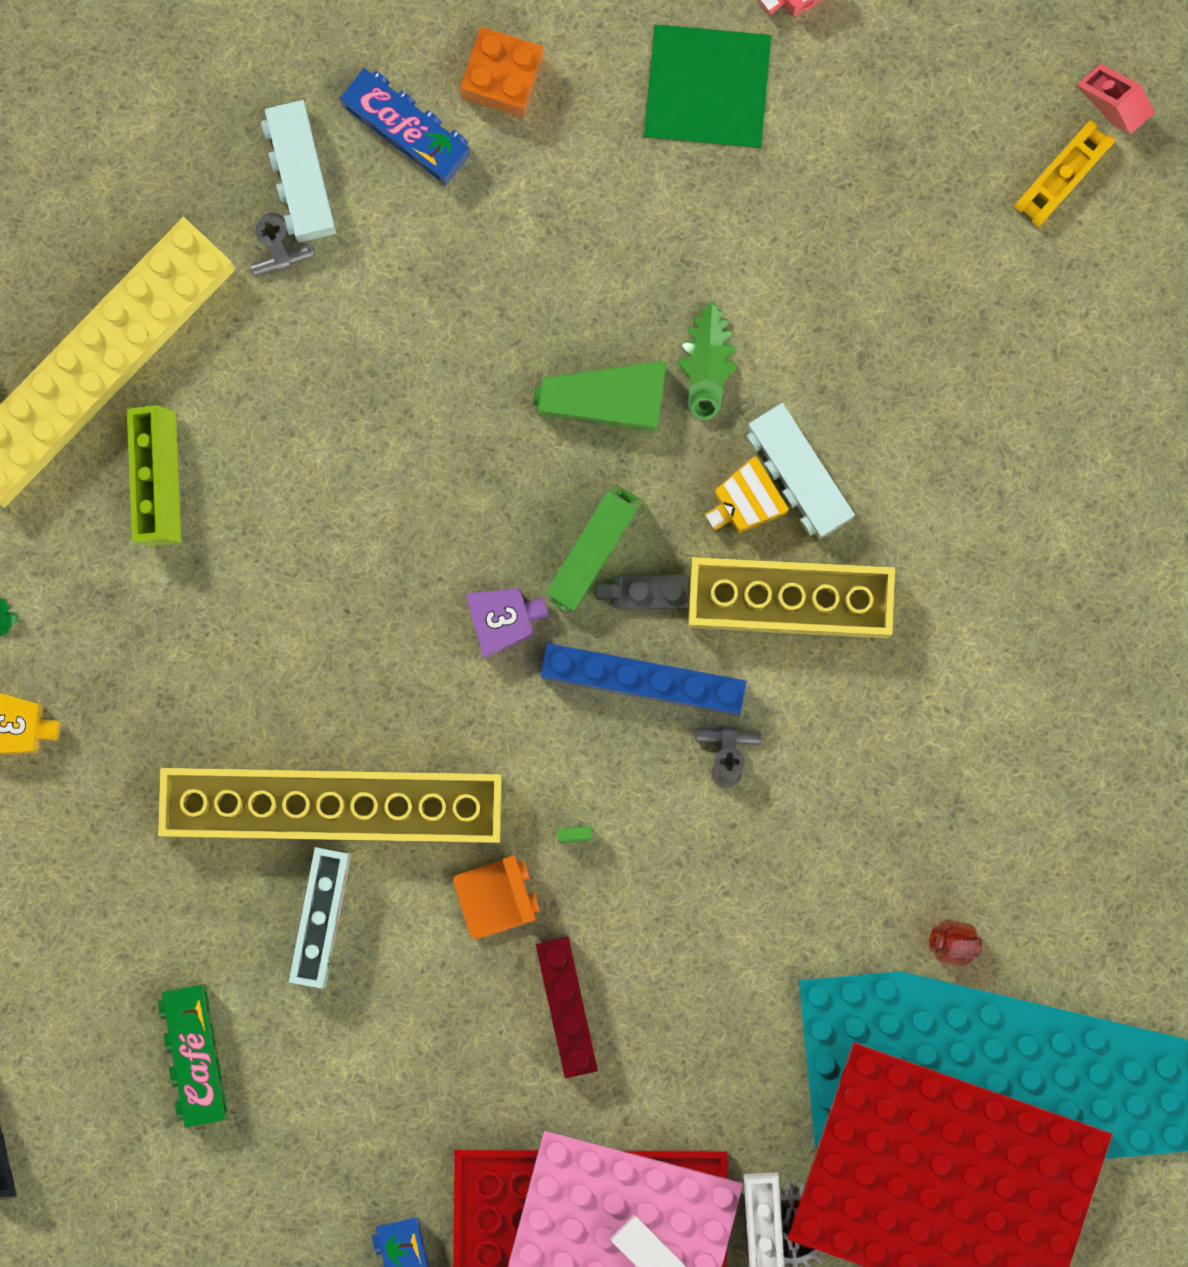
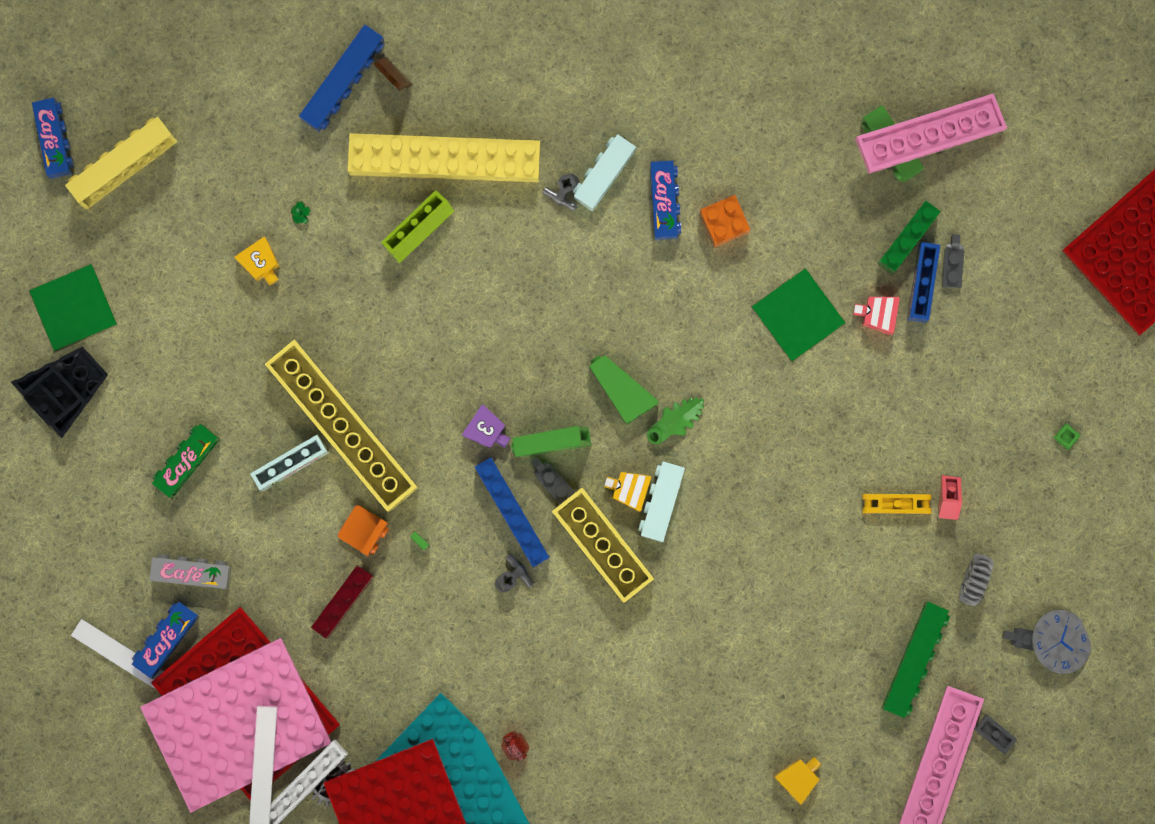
camera: 55 degrees right, 0 degrees up
(350, 1178) = (190, 573): none -> light grey brick

